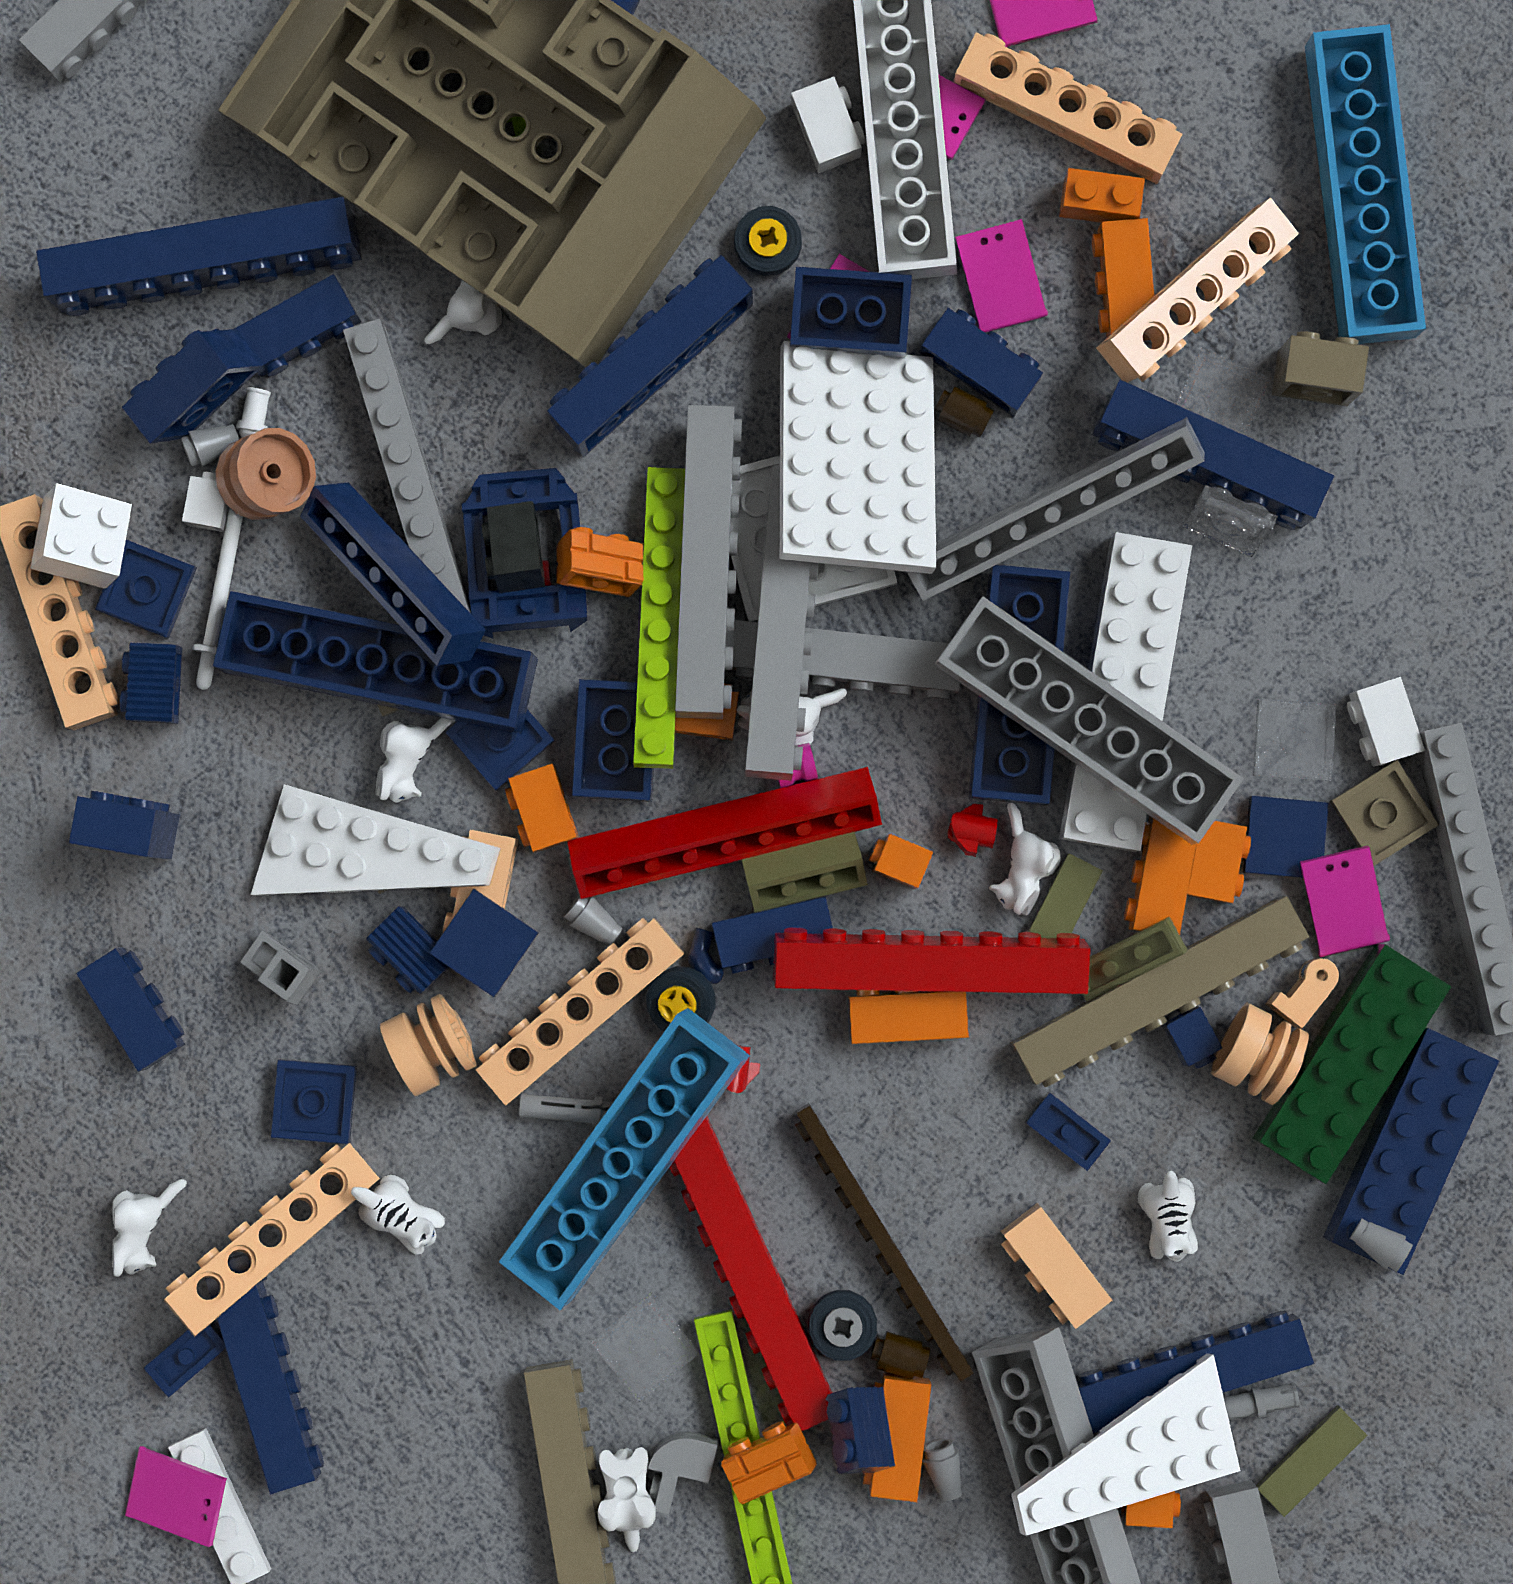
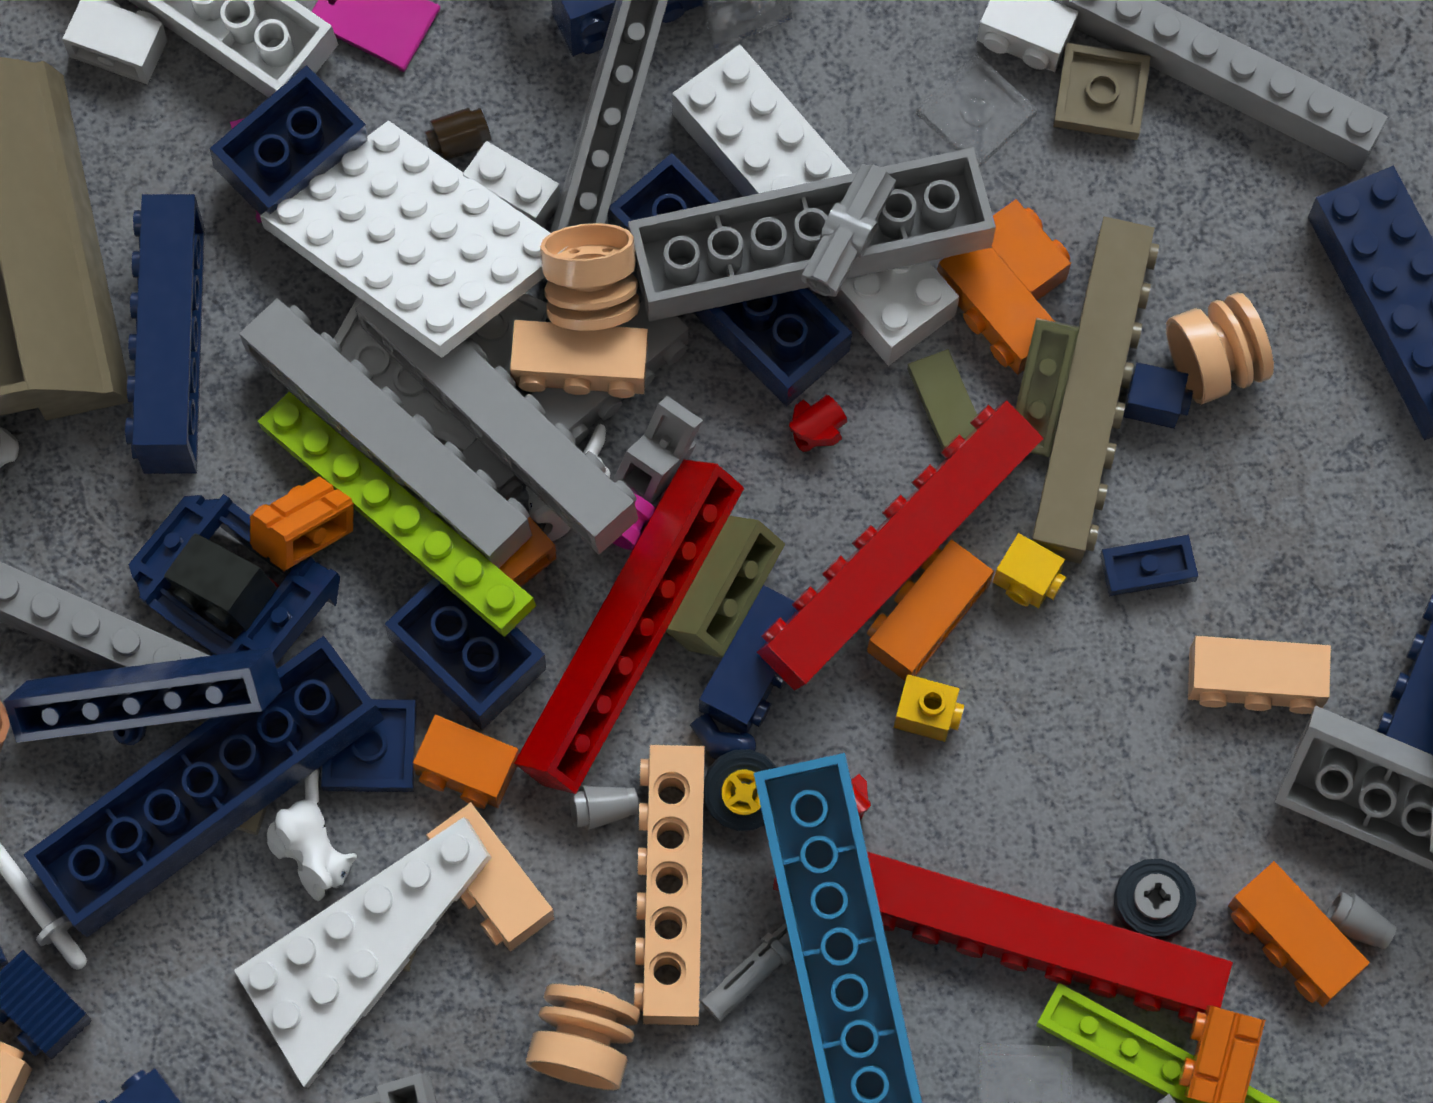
camera: 55 degrees left, 15 degrees down
(407, 948) = (484, 987): dark blue brick -> none
(484, 943) = (538, 906): dark blue tile -> none
(761, 253) = (156, 147): black wheel -> none
(841, 1072) = (928, 708): none -> yellow brick
(856, 746) = (660, 451): none -> light grey brick
(860, 1430) = (1263, 950): dark blue brick -> none
(868, 642) = (579, 360): none -> light nougat brick
(890, 1257) = (1128, 803): dark brown plate -> none
(900, 860) = (790, 496): orange brick -> none
(900, 1355) = (1225, 872): dark brown brick -> none
(924, 603) = (591, 278): none -> light nougat wheel
(956, 484) = (515, 183): none -> white brick
(982, 360) = (429, 84): dark blue brick -> none
(992, 1059) = (1029, 572): none -> yellow brick
(1030, 861) = (888, 397): white animal -> none
(1104, 750) = (848, 230): none -> light grey piece
(1170, 1212) = (1293, 539): white animal -> none
(1284, 835) = (1054, 183): dark blue tile -> none
(1314, 985) = (1201, 270): light nougat leg -> none
(1344, 901) = (1149, 182): dark pink container -> none
(1352, 1062) = (1294, 286): dark green brick -> none

